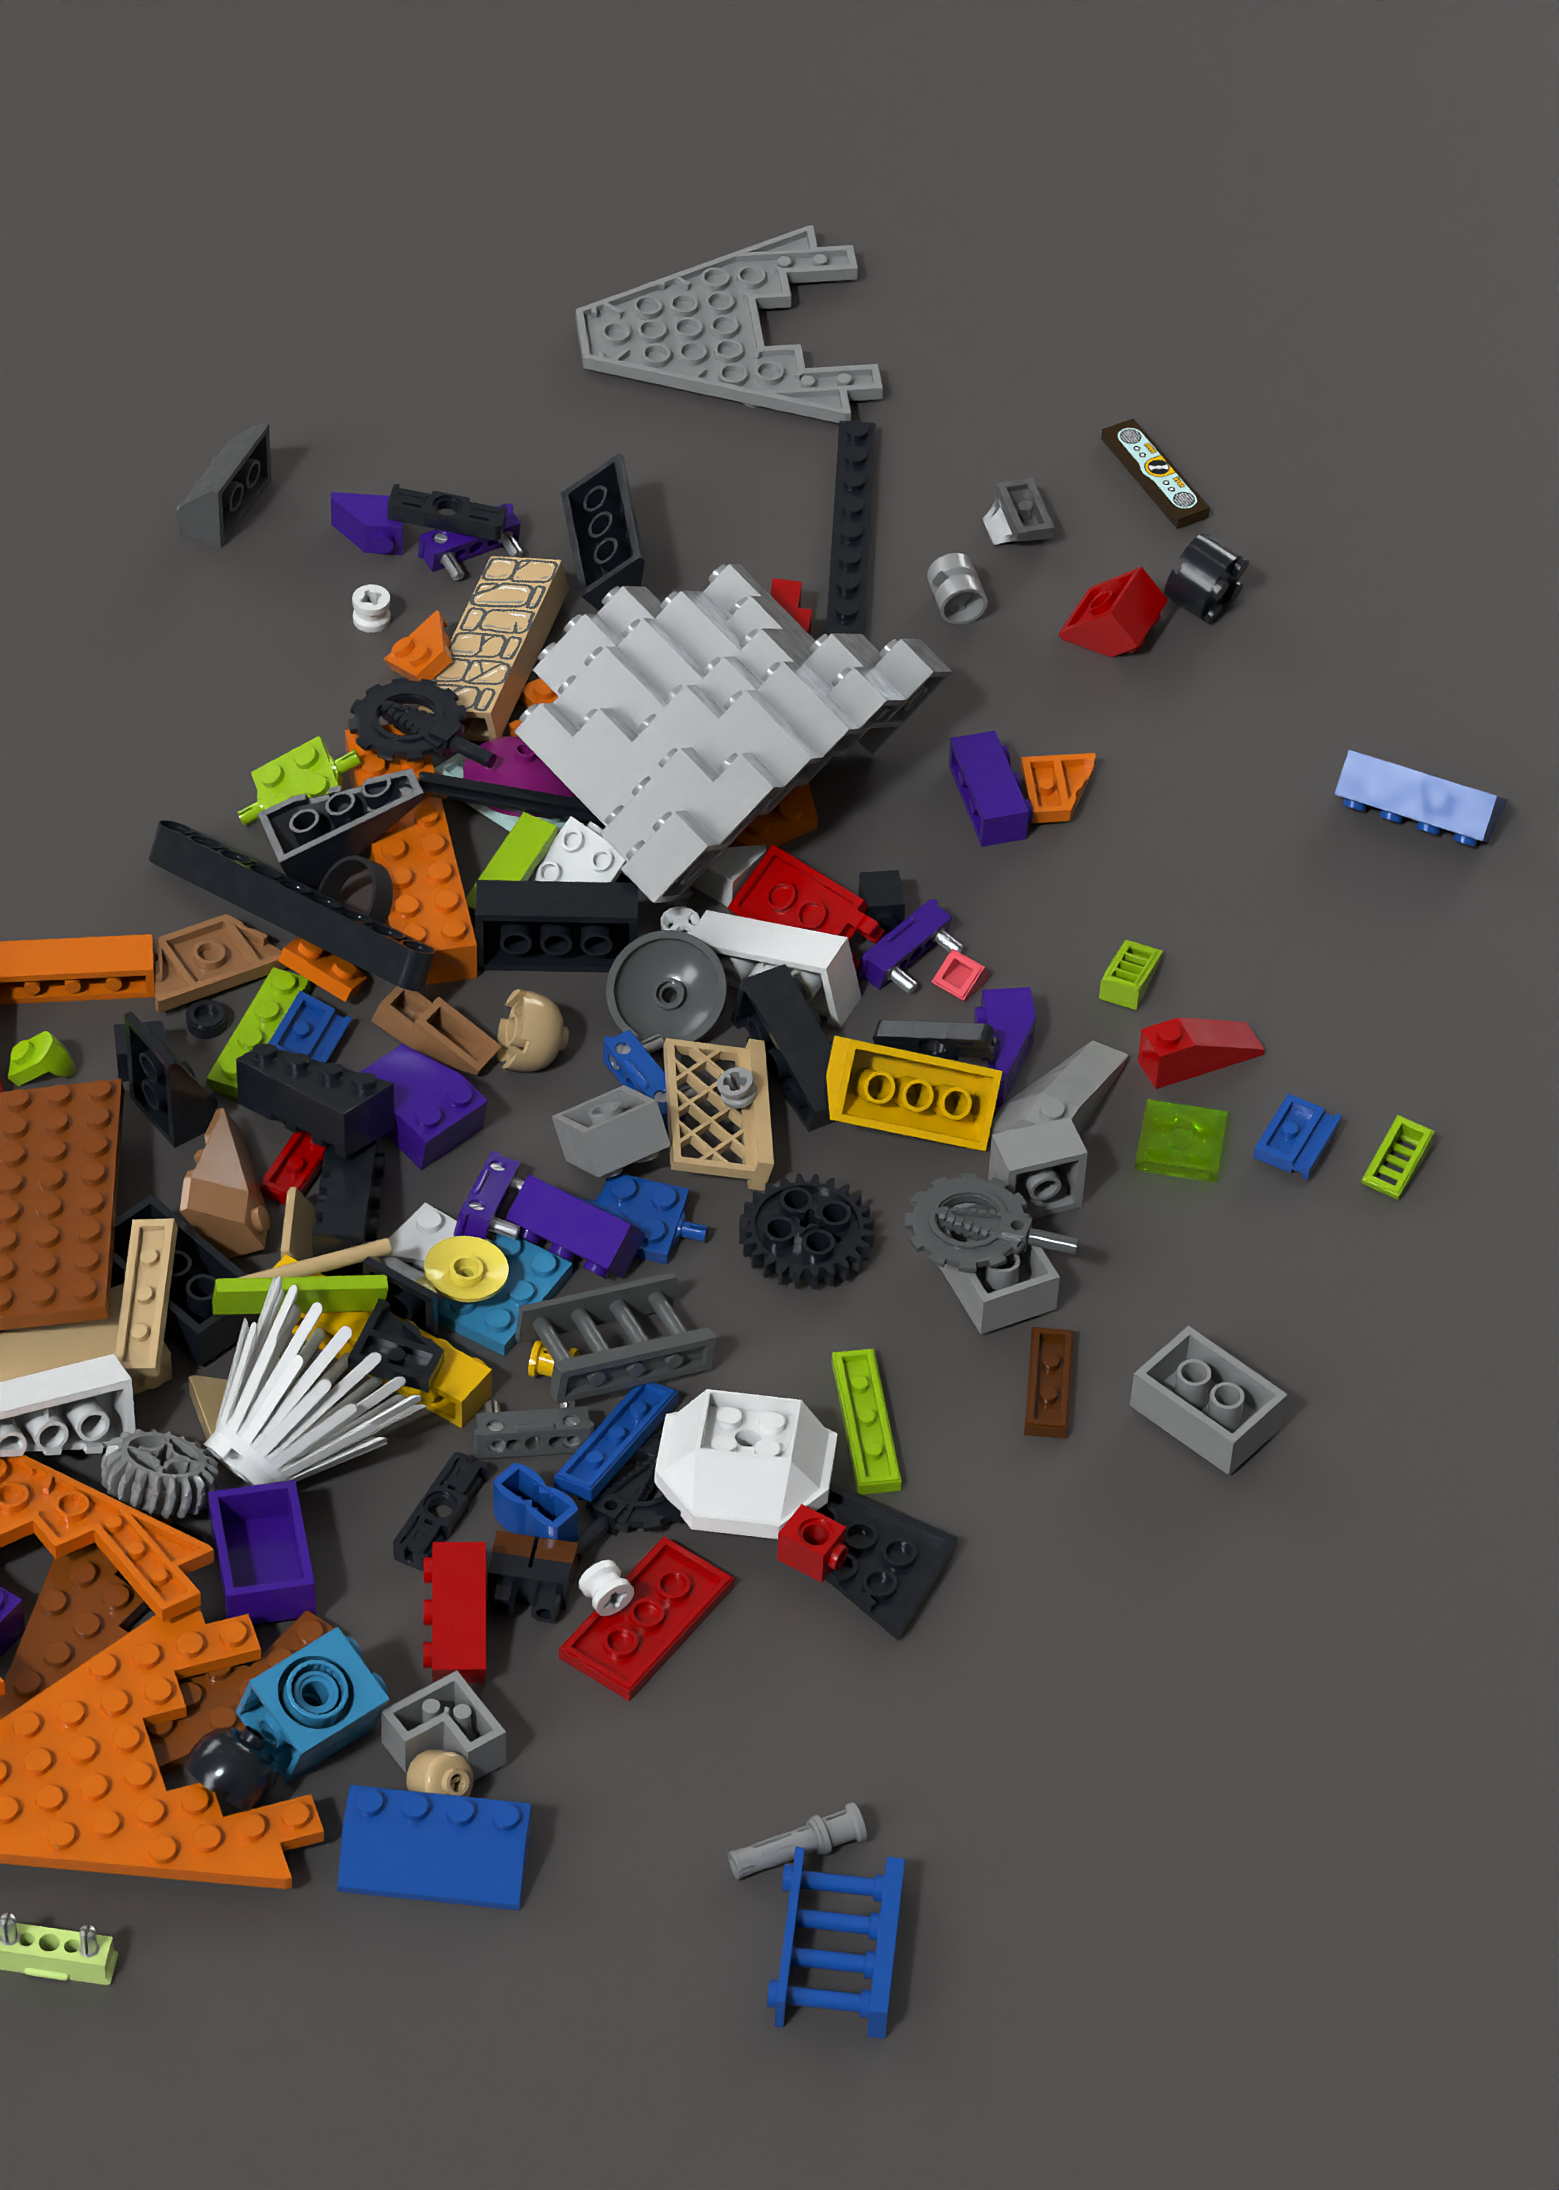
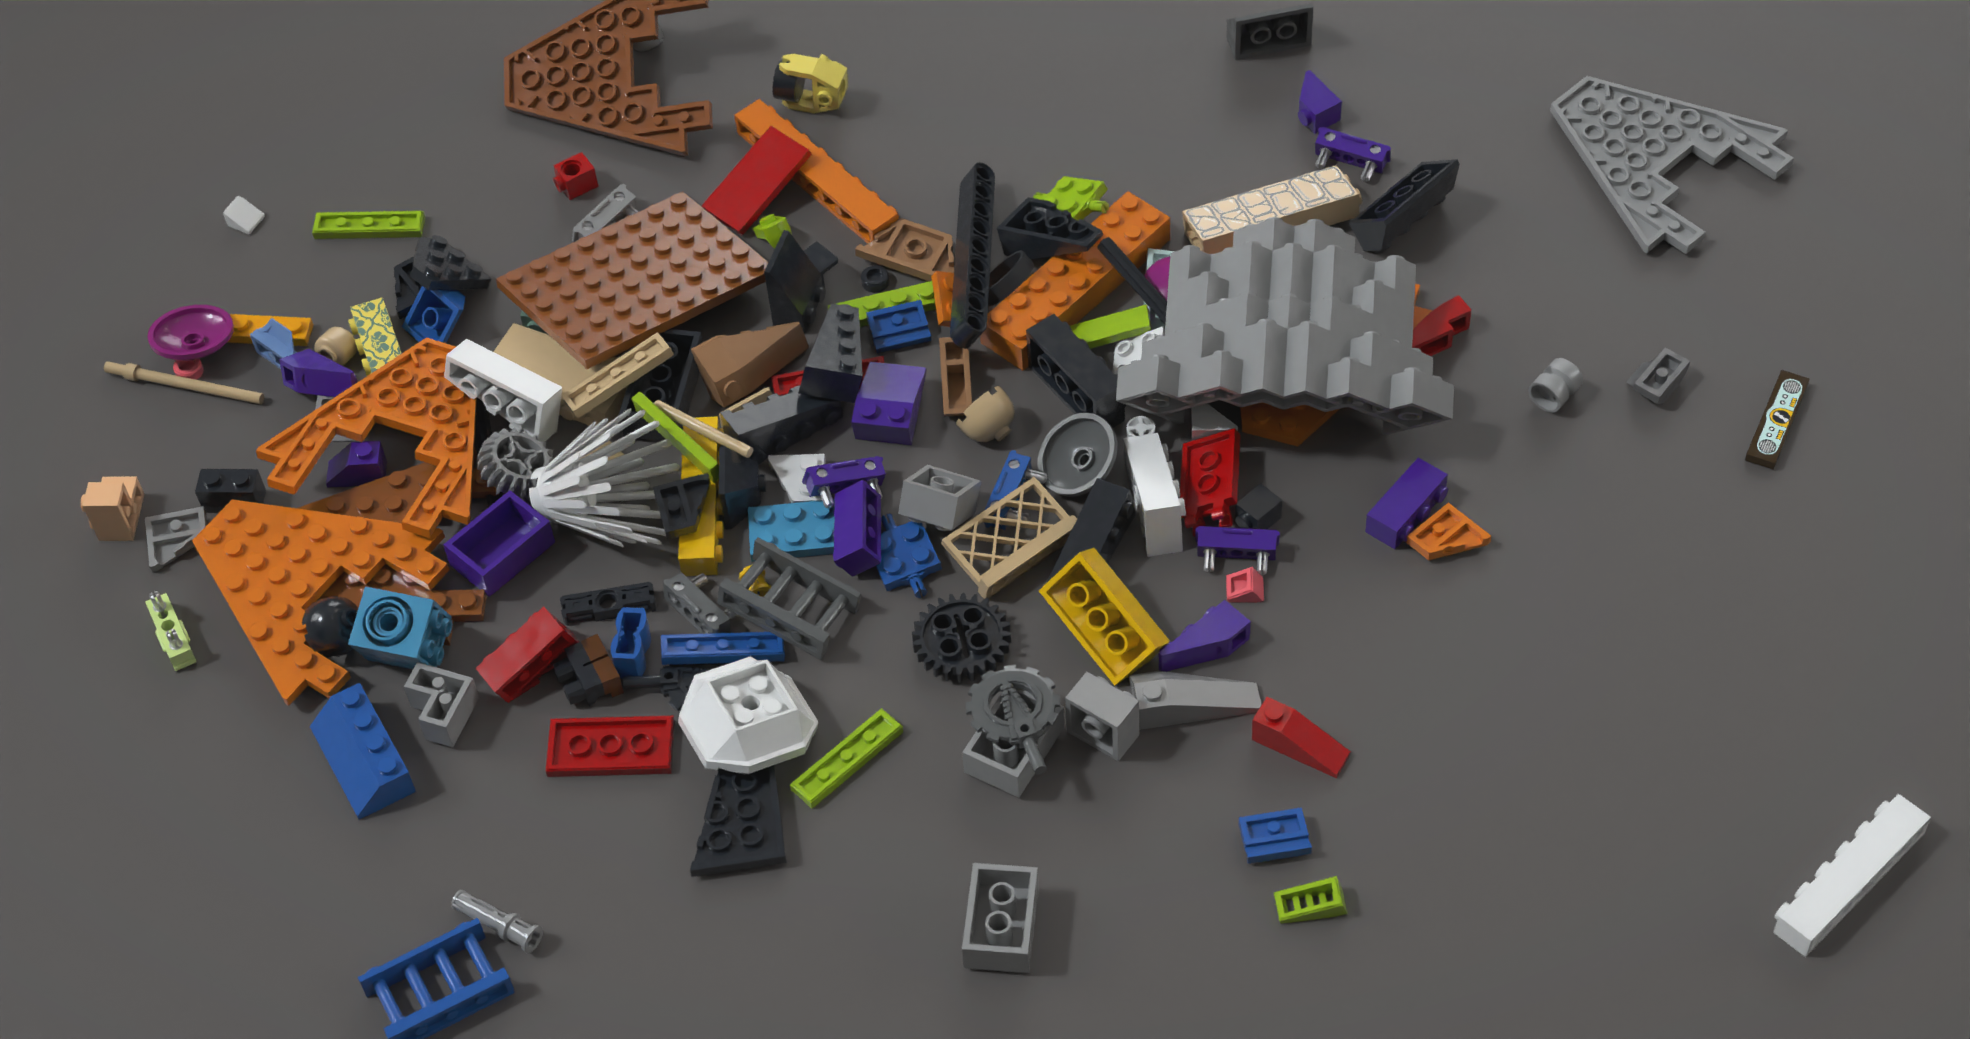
camera: 60 degrees right, 5 degrees up
(371, 608) = (1250, 146): white wheel -> none
(423, 509) = (1352, 138): black piece -> none
(423, 651) = (1231, 185): orange wing -> none
(423, 731) = (1155, 224): black bar -> none
(440, 1773) = (403, 723): tan head -> none
(466, 1268) = (773, 489): light yellow dish -> none
(606, 1587) = (599, 710): white wheel -> none
(732, 1078) = (1026, 525): light grey bush -> none
(812, 1543) = (707, 774): red brick -> none
(851, 528) = (1544, 316): black plate -> none
(939, 1039) = (1162, 603): black piece -> none
(1049, 1382) = (957, 830): reddish brown tile -> none
(1116, 614) = (1624, 475): red slope -> none
(1121, 990) = (1323, 677): lime slope -> none
(1181, 1140) = (1217, 778): clear neon green plate -> none
(1206, 578) = (1699, 496): black brick -> none
(1419, 796) = (1638, 724): slope -> none

